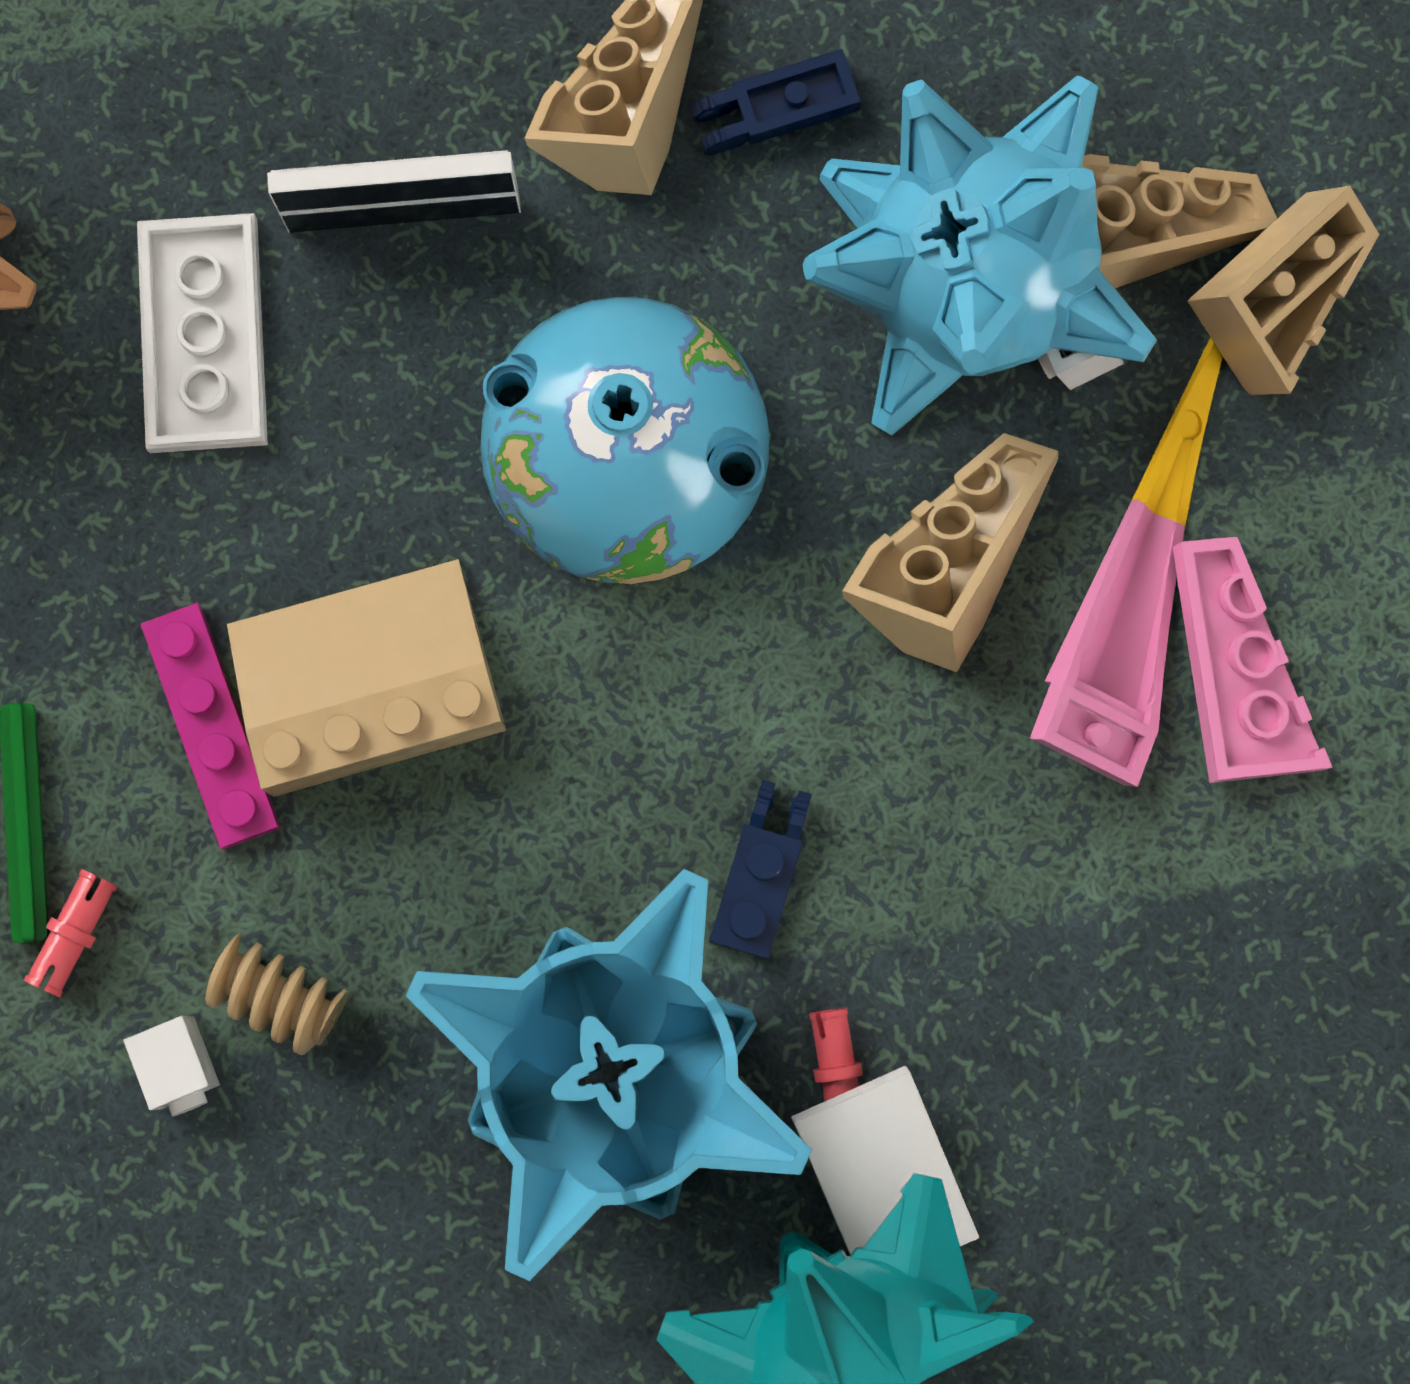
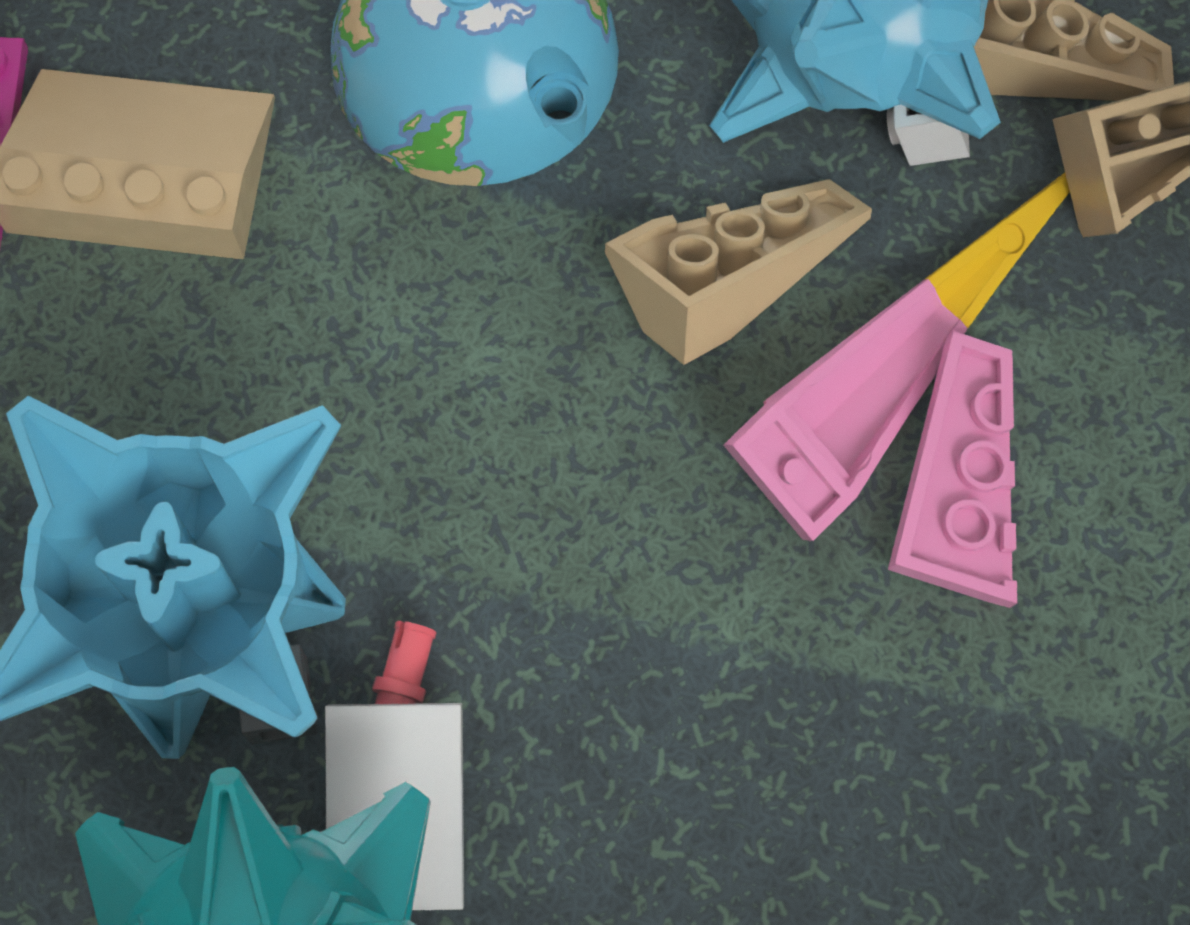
camera: 25 degrees right, 10 degrees down
(759, 878) = (413, 479): dark blue hinge -> none

